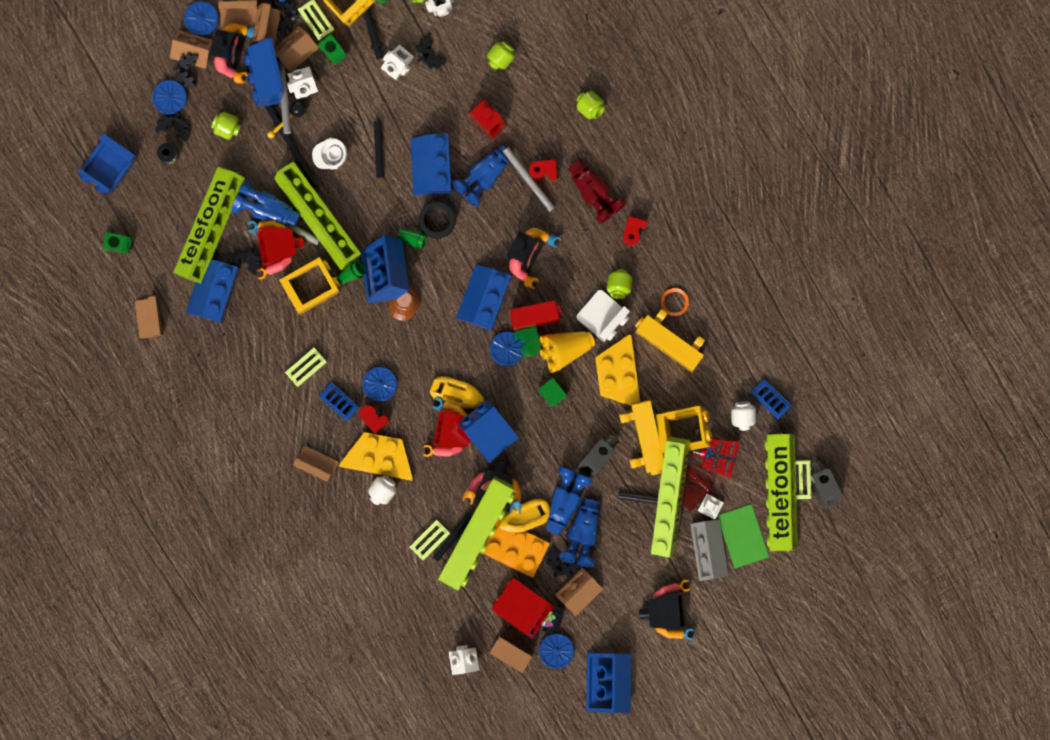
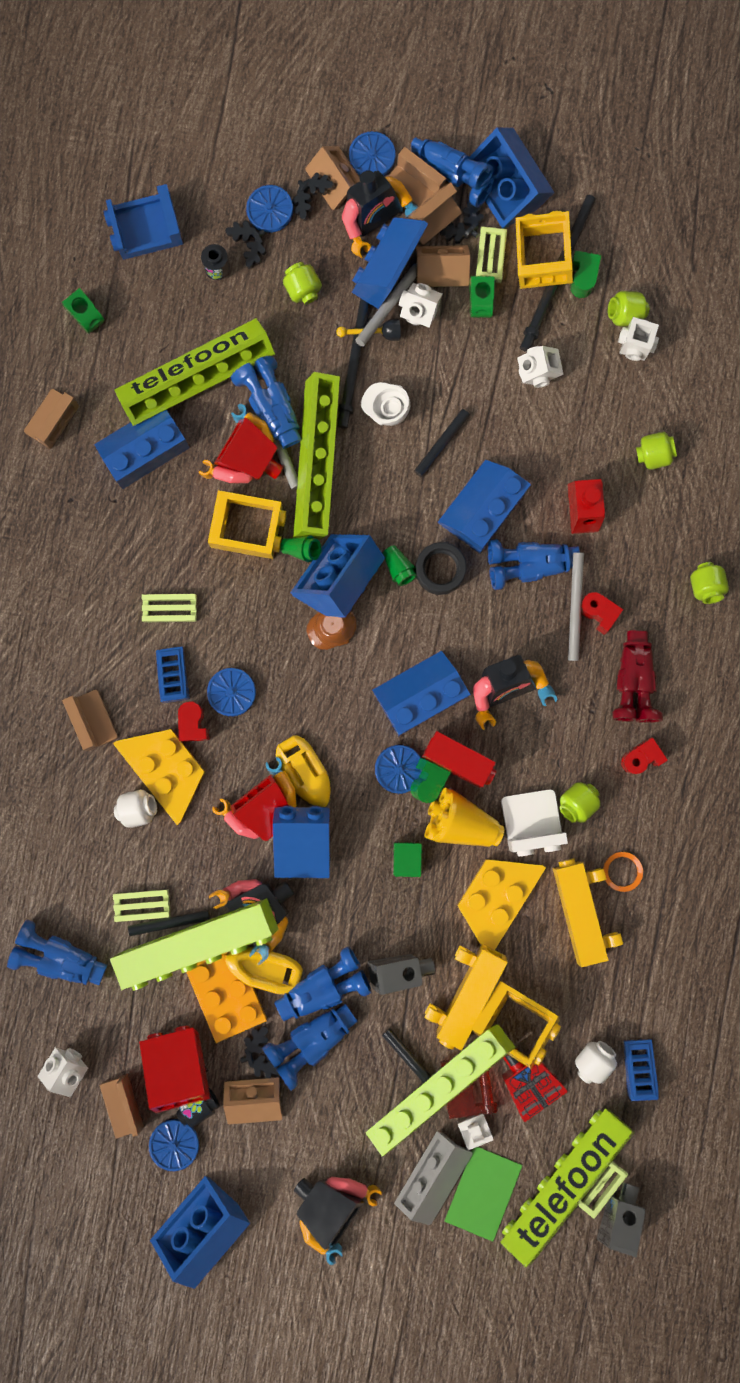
camera: 40 degrees right, 0 degrees up
(252, 261) = (207, 448): black animal -> none
(411, 606) = (59, 958): none -> blue piece
(429, 61) = (577, 377): black animal -> none

